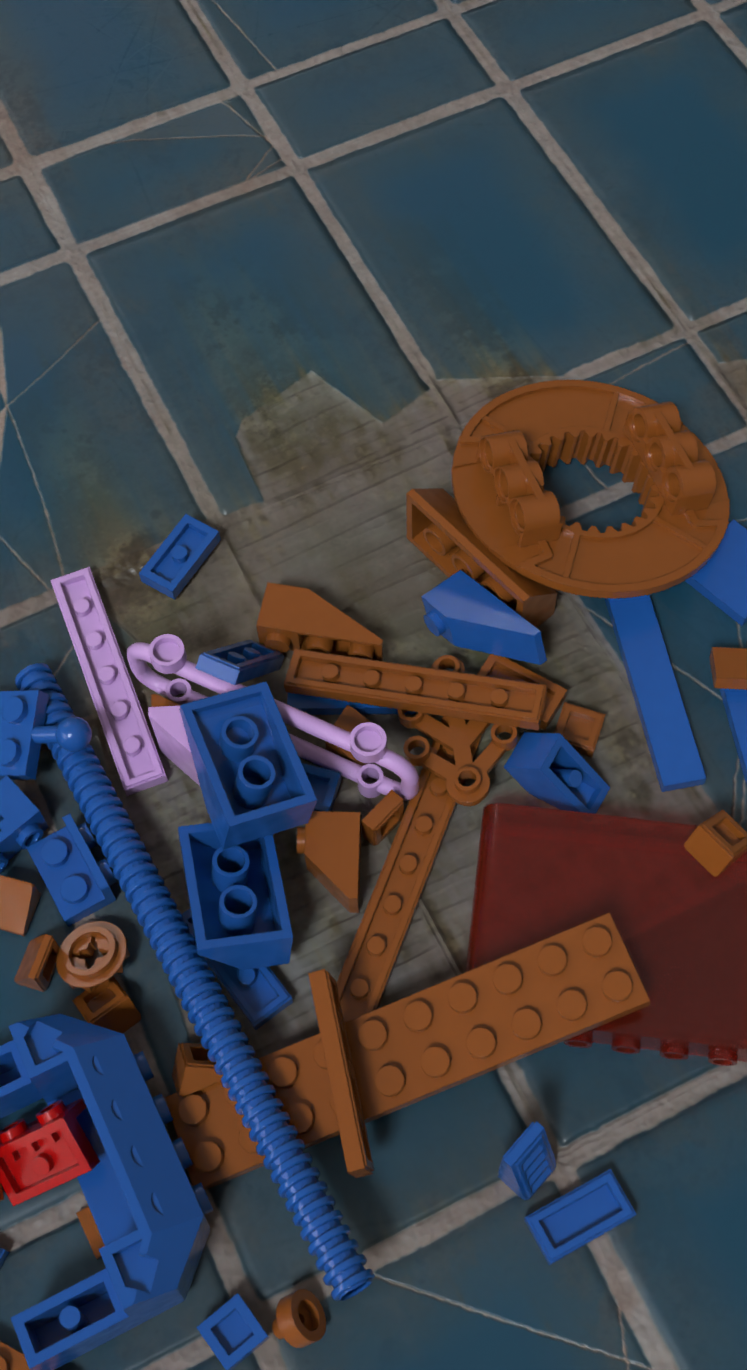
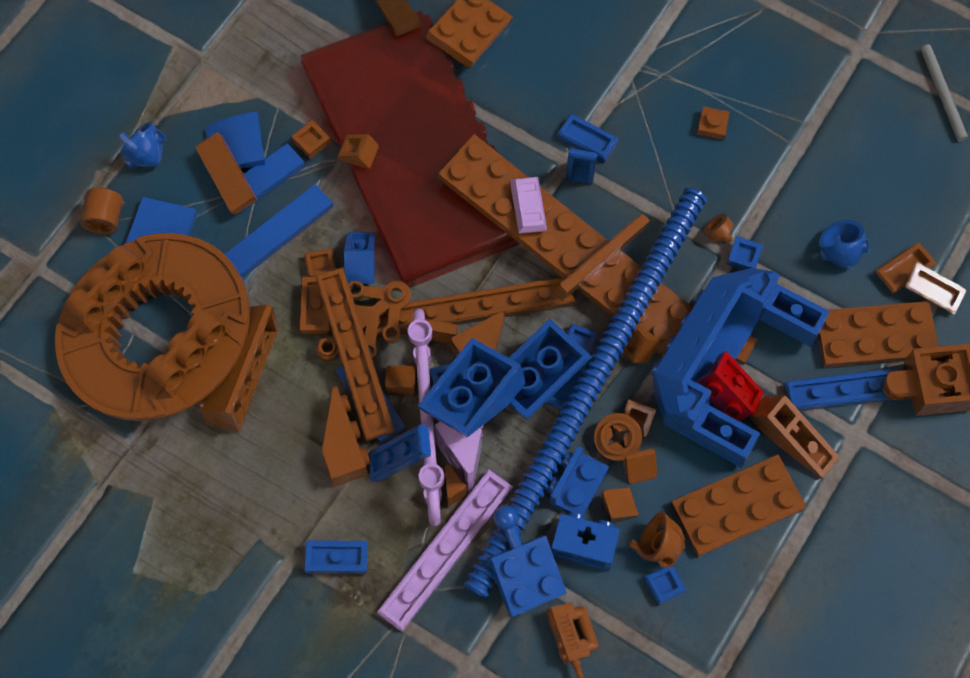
camera: 125 degrees left, 5 degrees up
(480, 621) = (285, 347): blue slope -> none
(487, 1014) = (528, 205): none -> lavender tile

